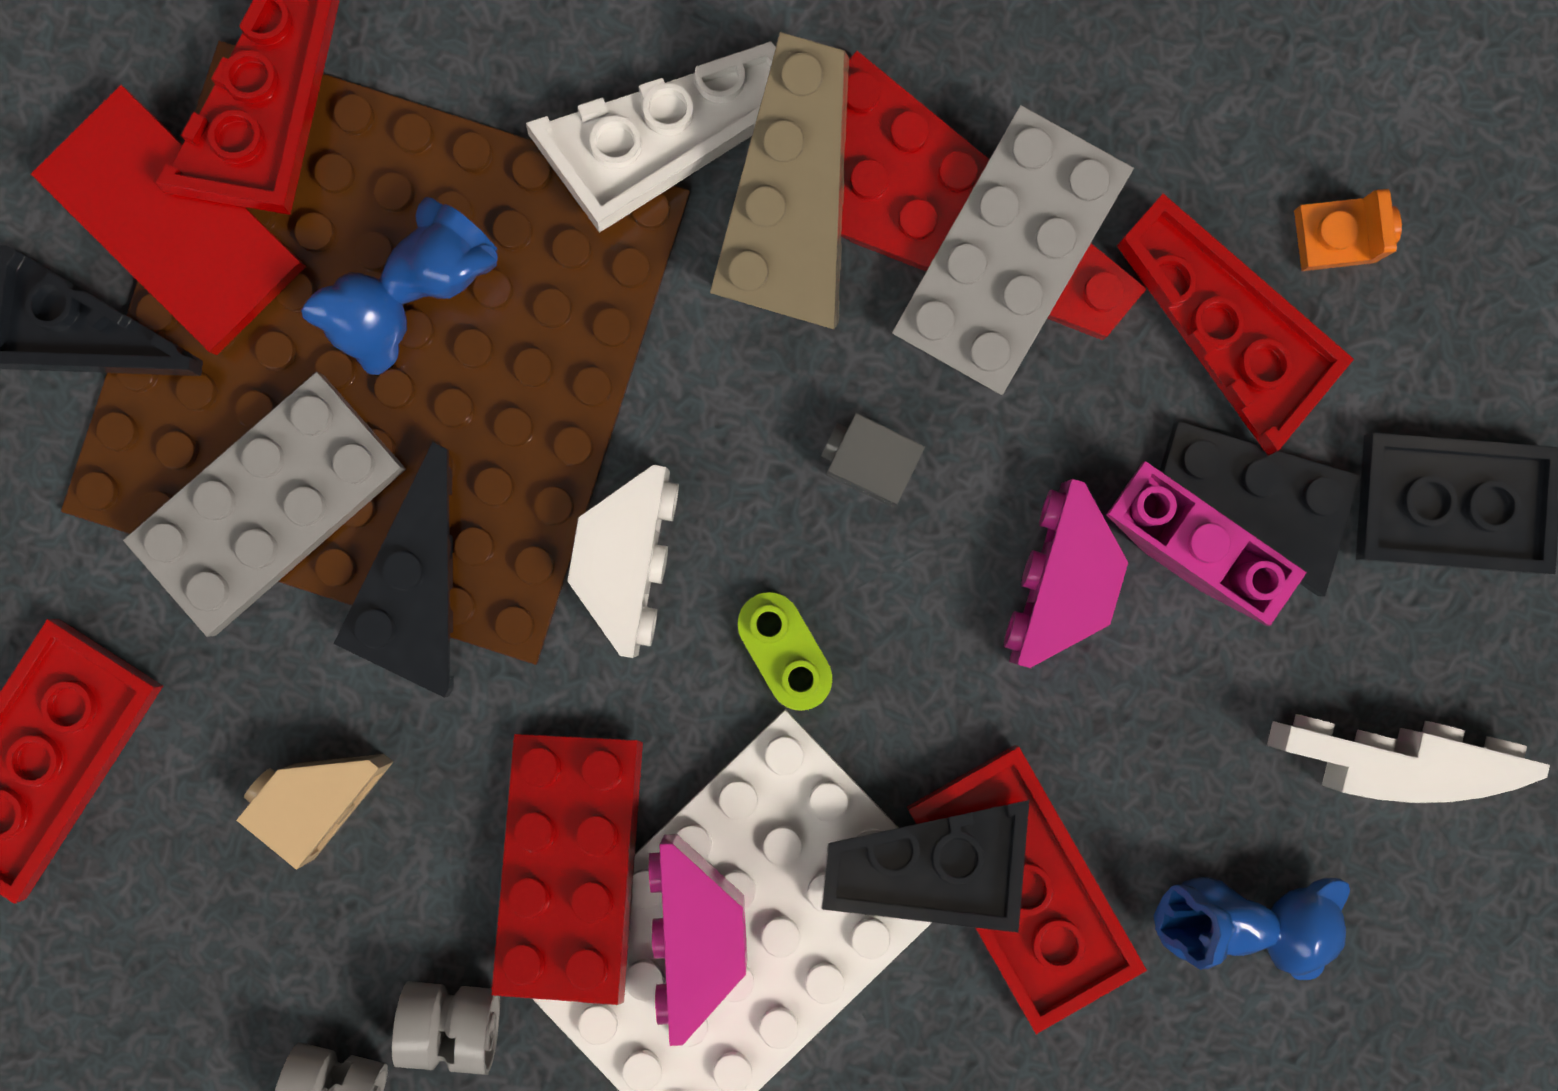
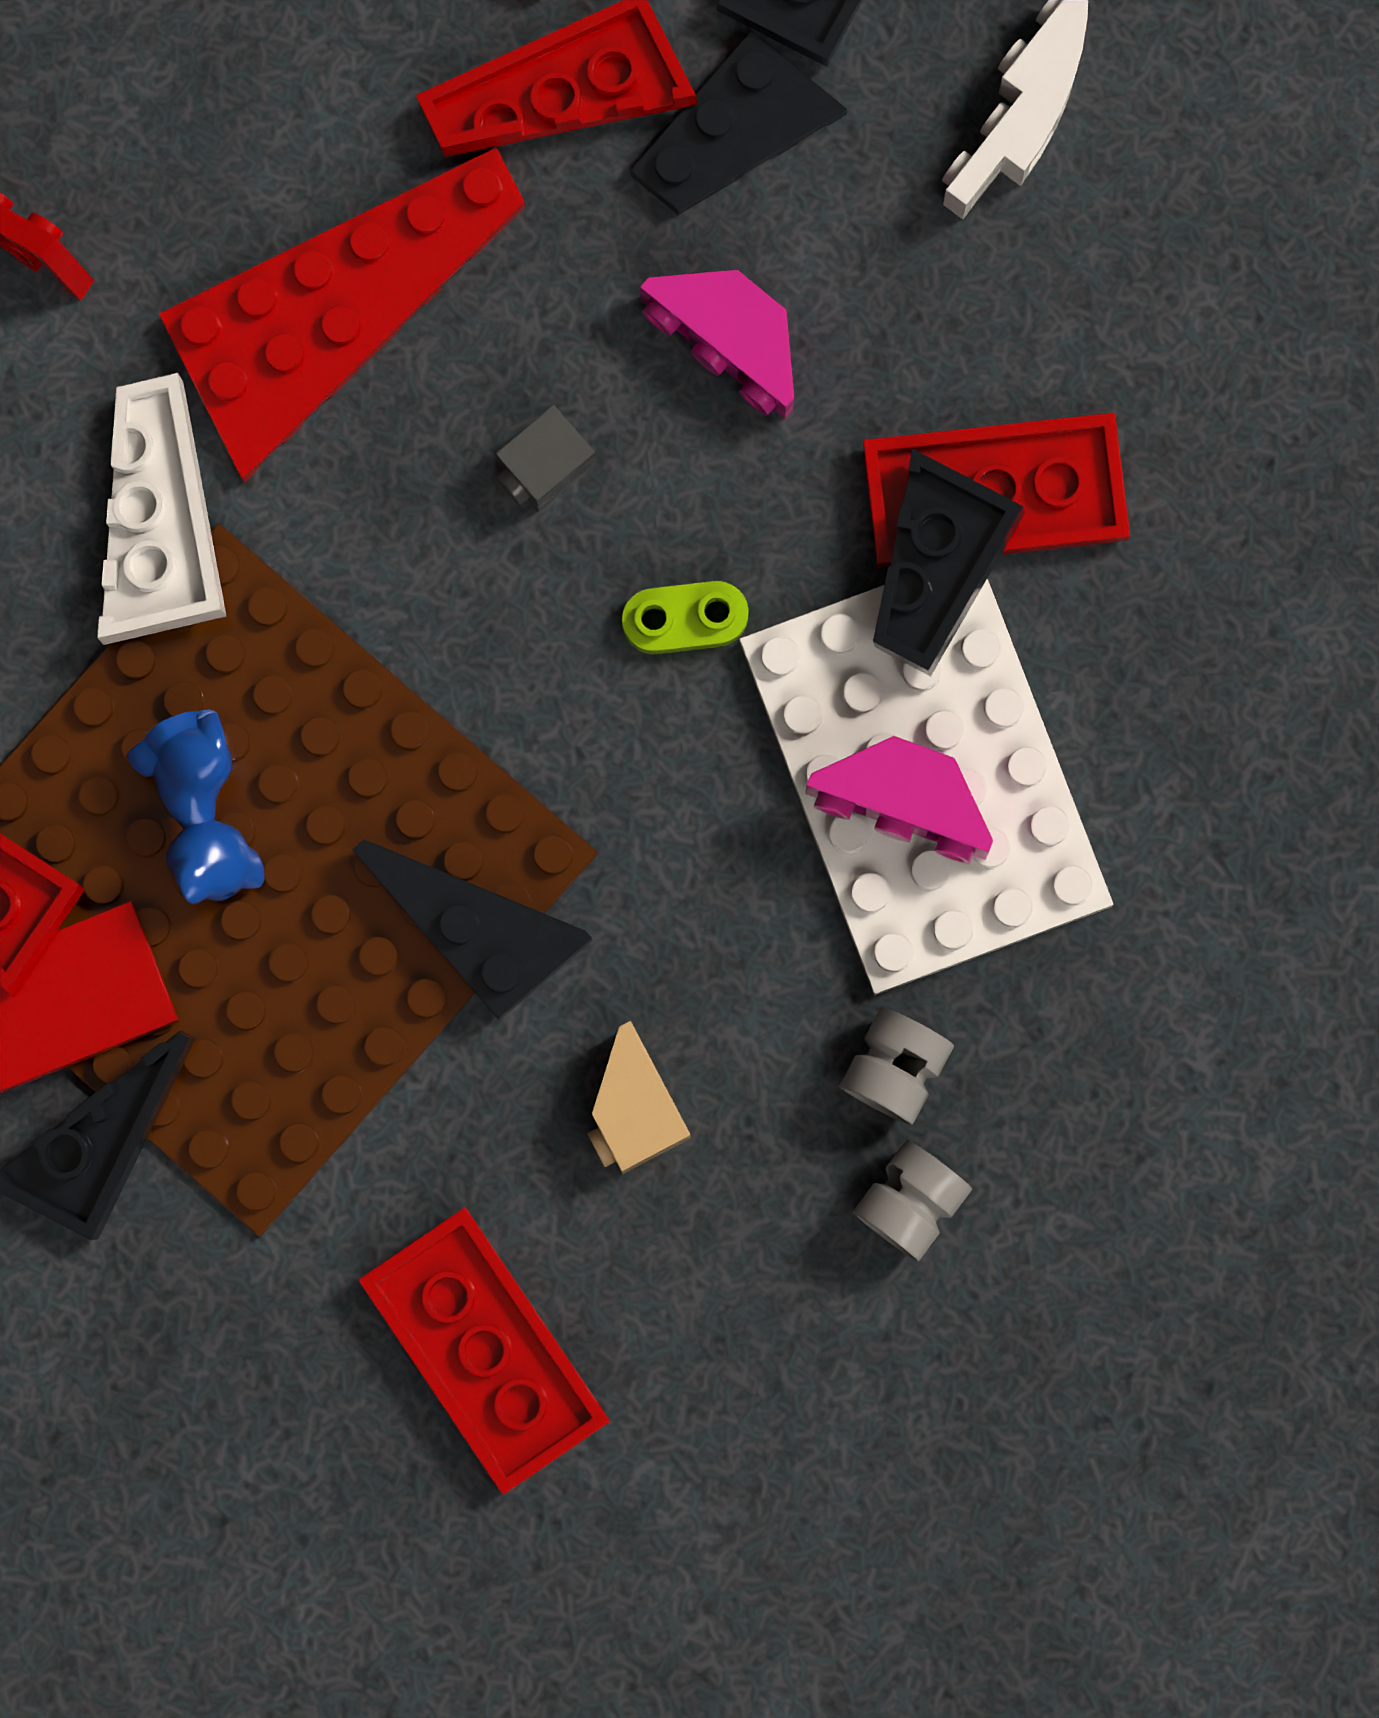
camera: 70 degrees left, 5 degrees down
(264, 505) = (340, 1031): light grey plate -> none
(568, 869) = (796, 893): red plate -> none
(620, 557) = (534, 727): white slope -> none
(790, 196) = (280, 431): dark tan wedge -> none
(1012, 250) = (410, 253): light grey plate -> none
(1204, 546) = (751, 198): dark pink slope -> none
(1209, 920) = (1138, 263): blue animal -> none

